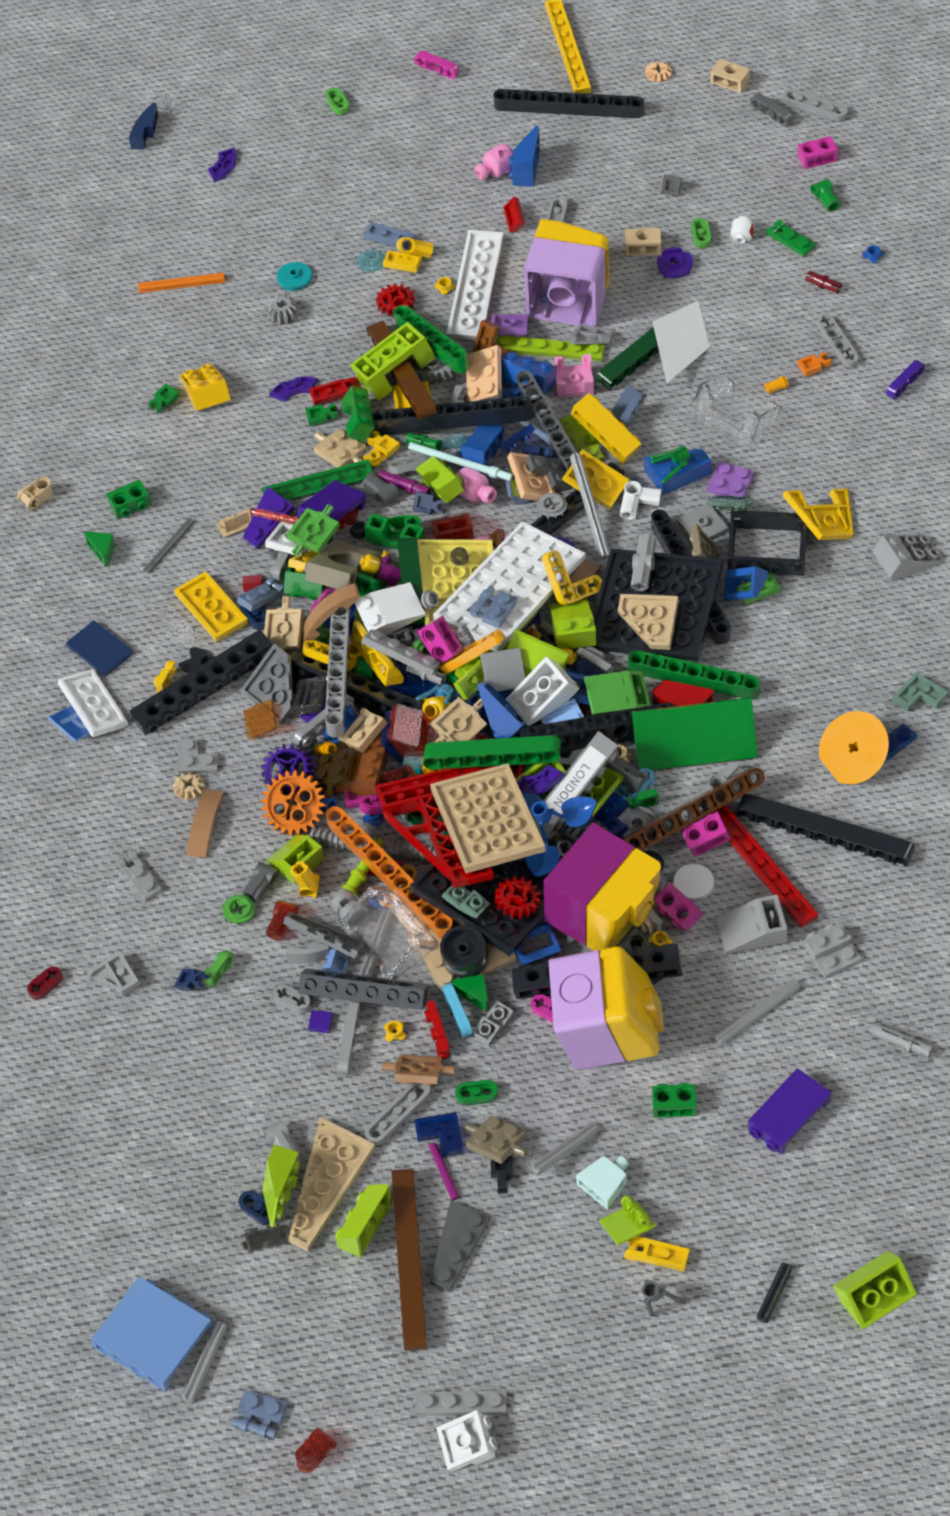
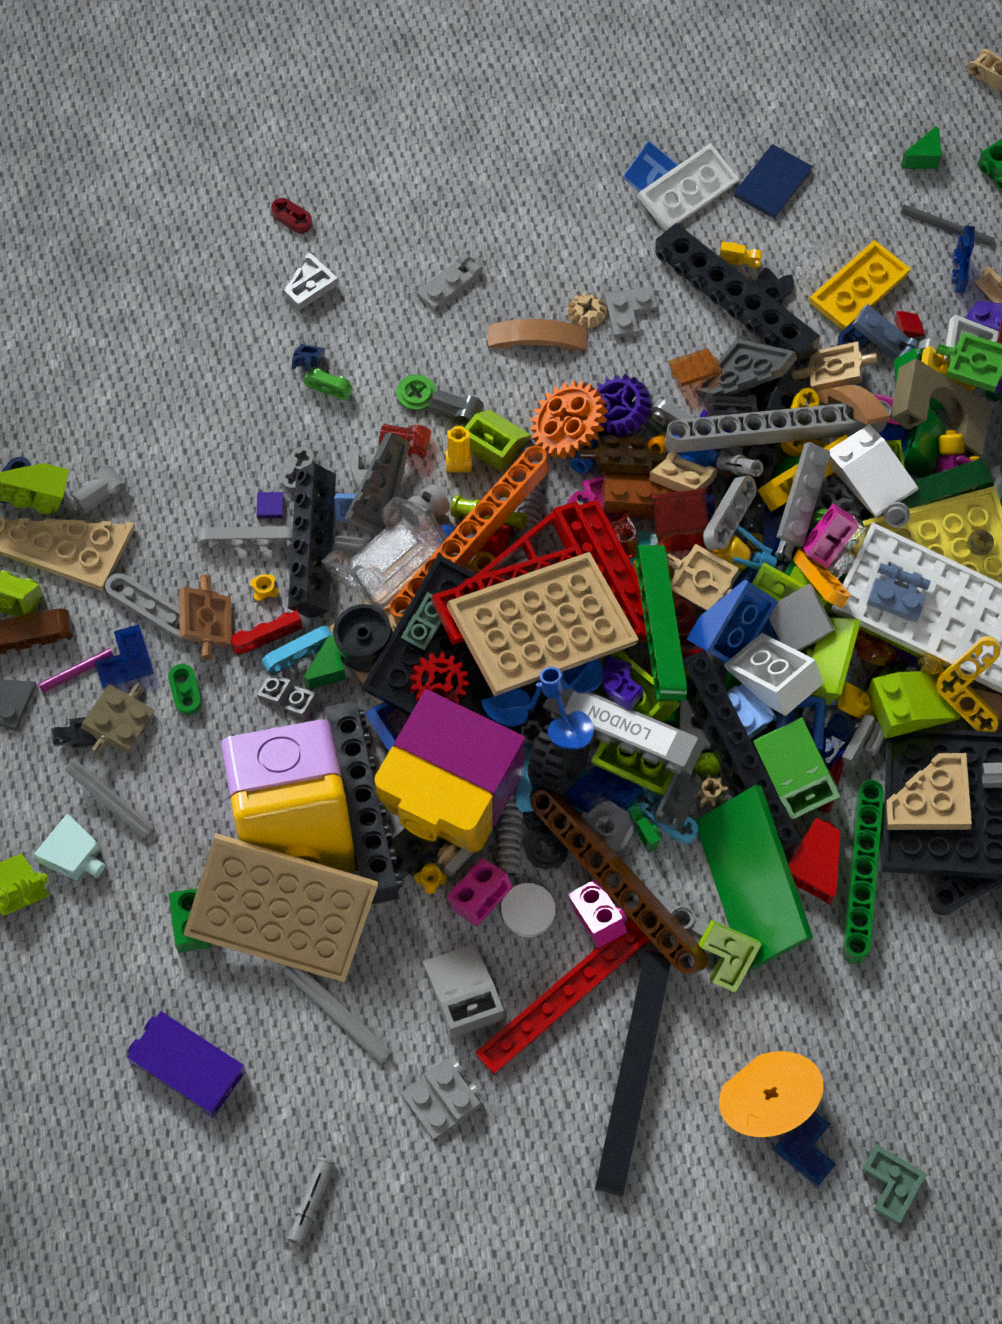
camera: 75 degrees right, 10 degrees up
(203, 537) = (961, 258): none -> clear blue plate
(365, 690) = (748, 467): none -> light grey pin
(408, 699) = (717, 532): none -> light grey beam
(549, 602) = (931, 664): none -> clear yellow plate
(683, 1022) = (280, 907): none -> tan plate
(747, 754) = (736, 954): none -> lime plate

